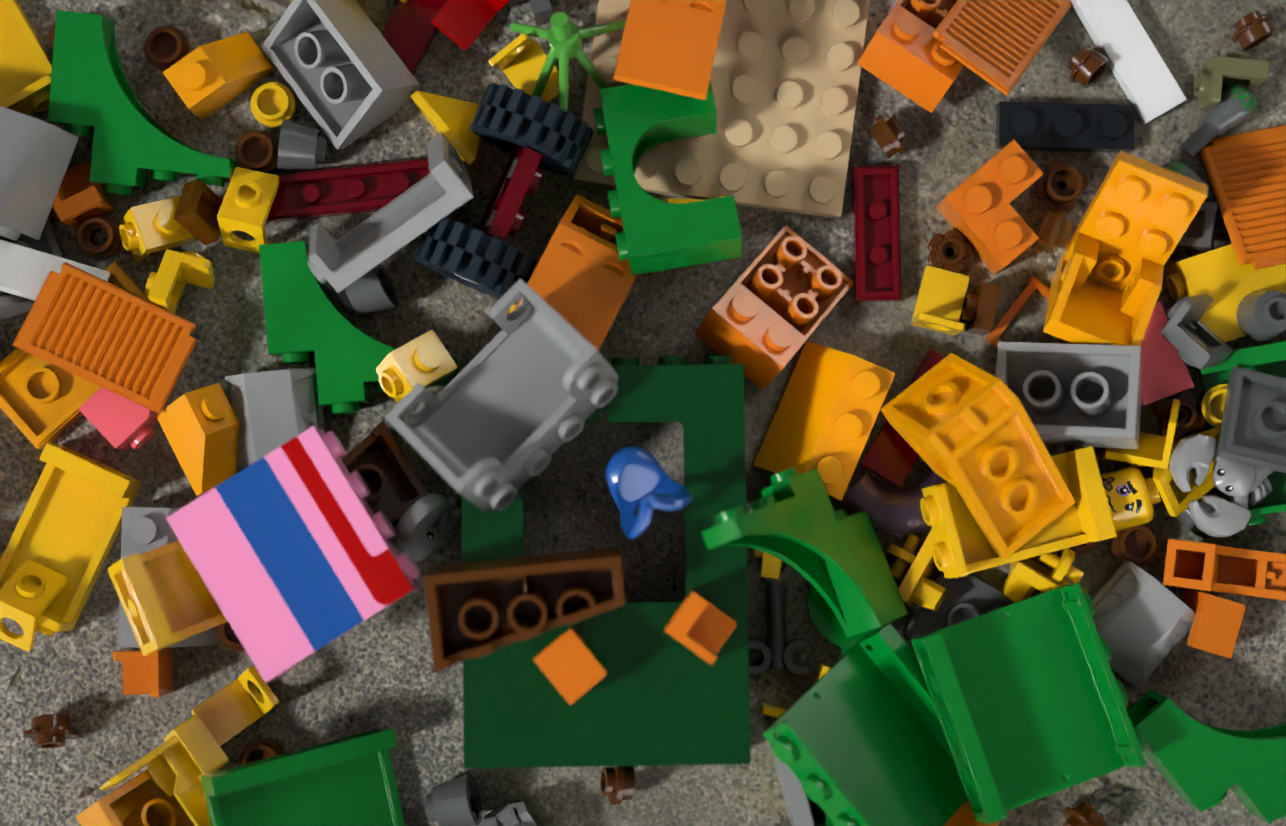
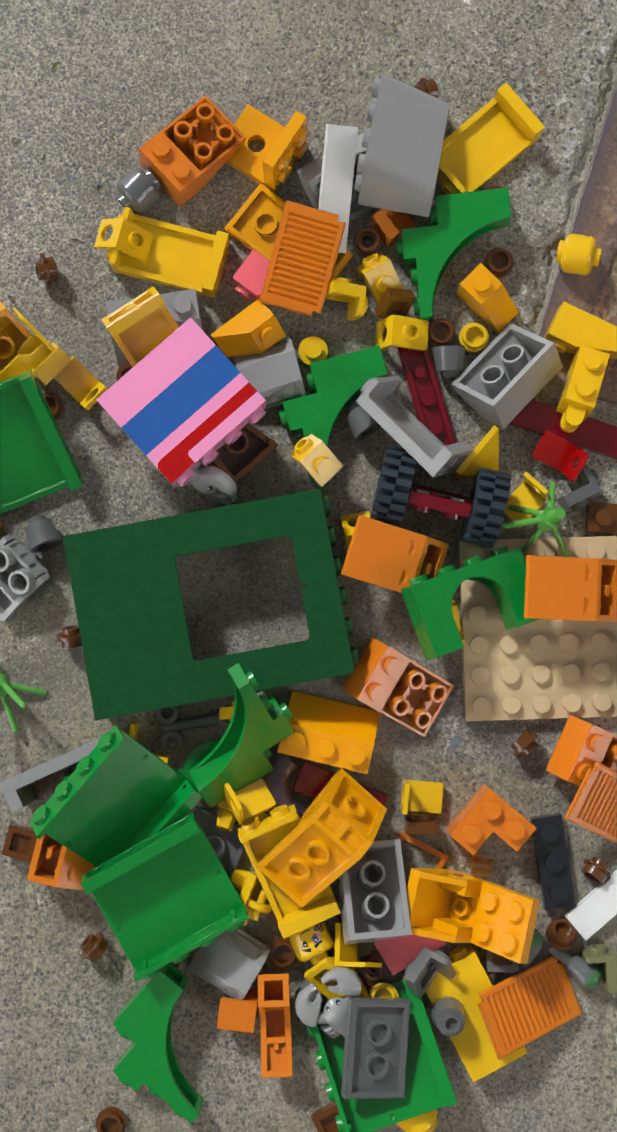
camera: 85 degrees right, 0 degrees up
(147, 673) = (90, 323): orange panel -> none
(248, 347) = (312, 350): none -> yellow plate
(509, 403) = (301, 523): light grey windscreen -> none
(516, 599) = (175, 550): reddish brown wedge -> none
(570, 665) = (138, 592): orange panel -> none
(640, 480) = (265, 614): blue piece -> none
(700, 626) = (177, 673): orange panel -> none
(876, 234) = (458, 747): dark red tile -> none
(906, 553) = (249, 800): none -> yellow bracket
(955, 241) = (455, 789): reddish brown plate -> none
(1071, 177) = (521, 863): reddish brown plate -> none
(1172, 132) = (561, 934): none -> reddish brown plate

